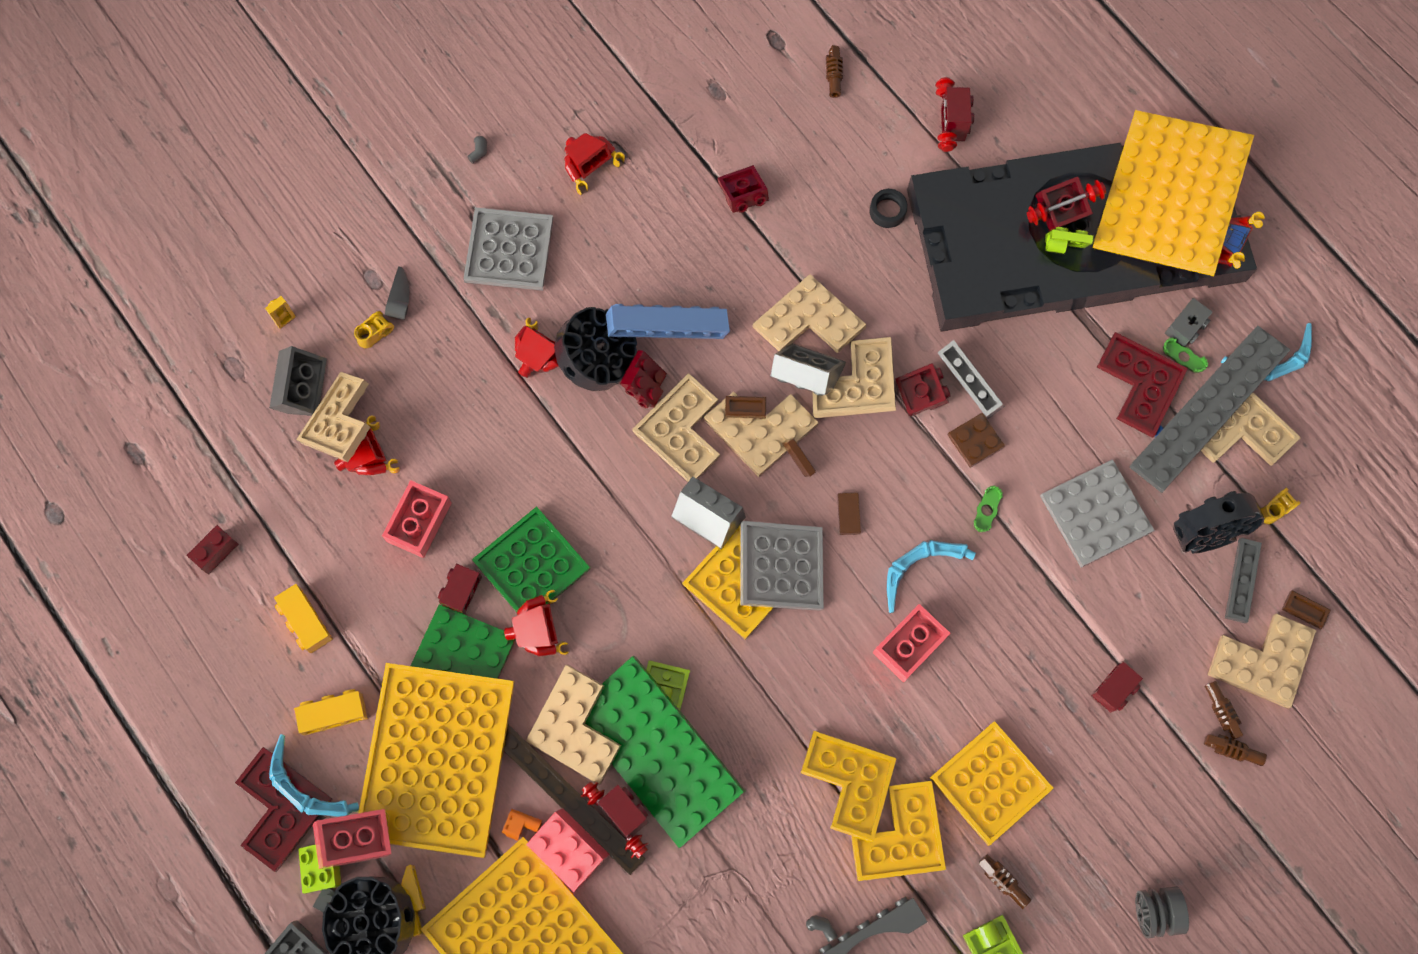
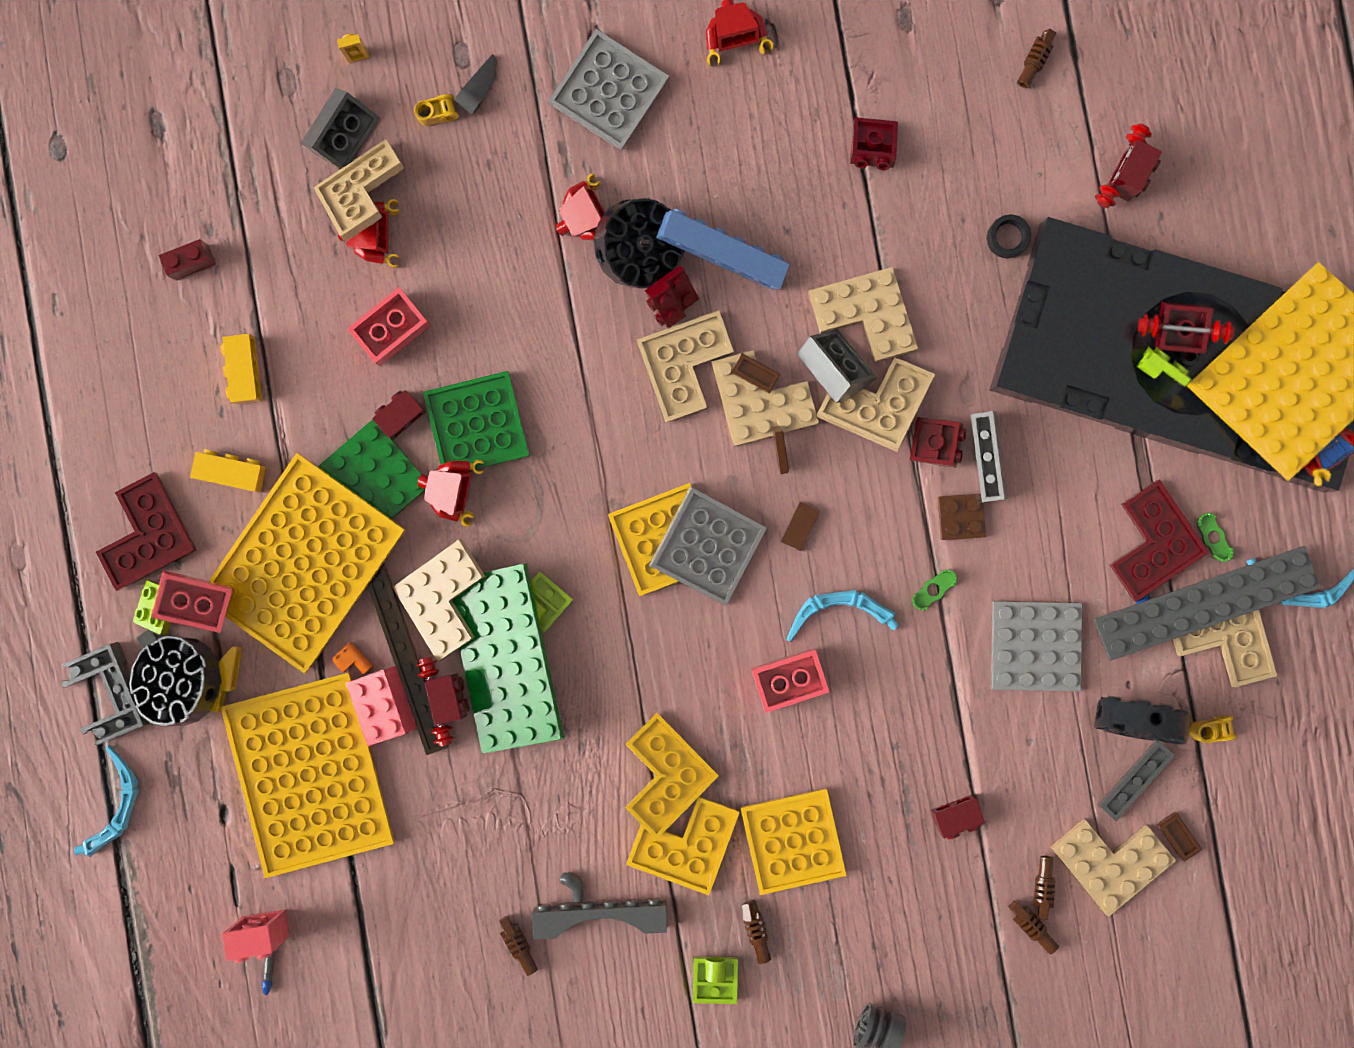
camera: 30 degrees right, 15 degrees up
(302, 801) = (163, 539): medium azure animal -> none
(708, 512) = (665, 460): slope -> none
(1193, 313) = (1226, 507): dark grey brick -> none

